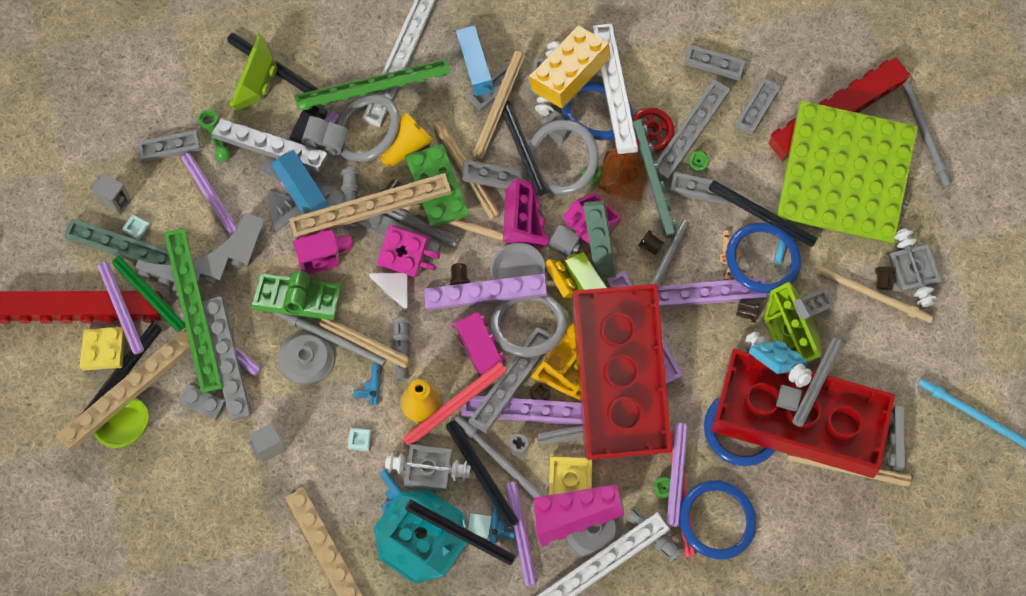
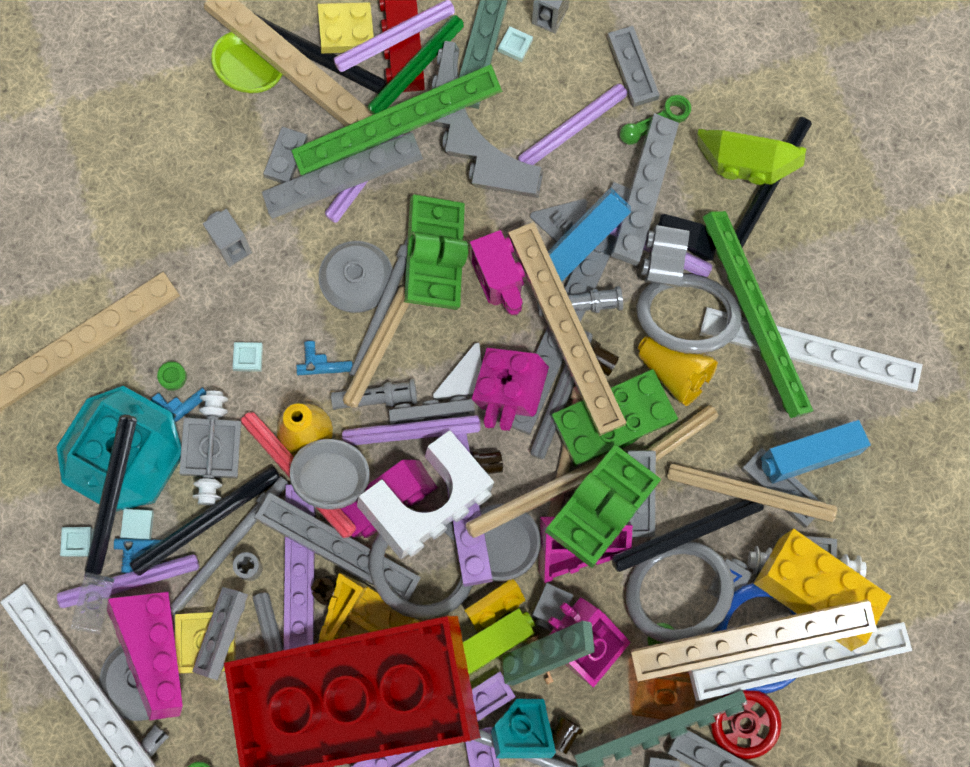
camera: 85 degrees right, 5 degrees up
(368, 496) = (172, 376): none -> bright green tile
(416, 309) = (432, 410): none -> light grey plate
(431, 323) = (411, 430): none -> lavender axle
(460, 376) = (329, 474): none -> light grey piece
(477, 284) = (408, 529): none -> white arch
(488, 239) = (530, 500): none -> tan axle
(488, 571) = (75, 541): none -> light aqua tile
(502, 192) = (602, 505): none -> bright green plate
(536, 556) = (92, 603): none -> clear plate
(566, 462) = (220, 633): none -> light grey plate
(602, 109) = (753, 640): none -> plate
(648, 265) = (524, 731): none -> teal plate

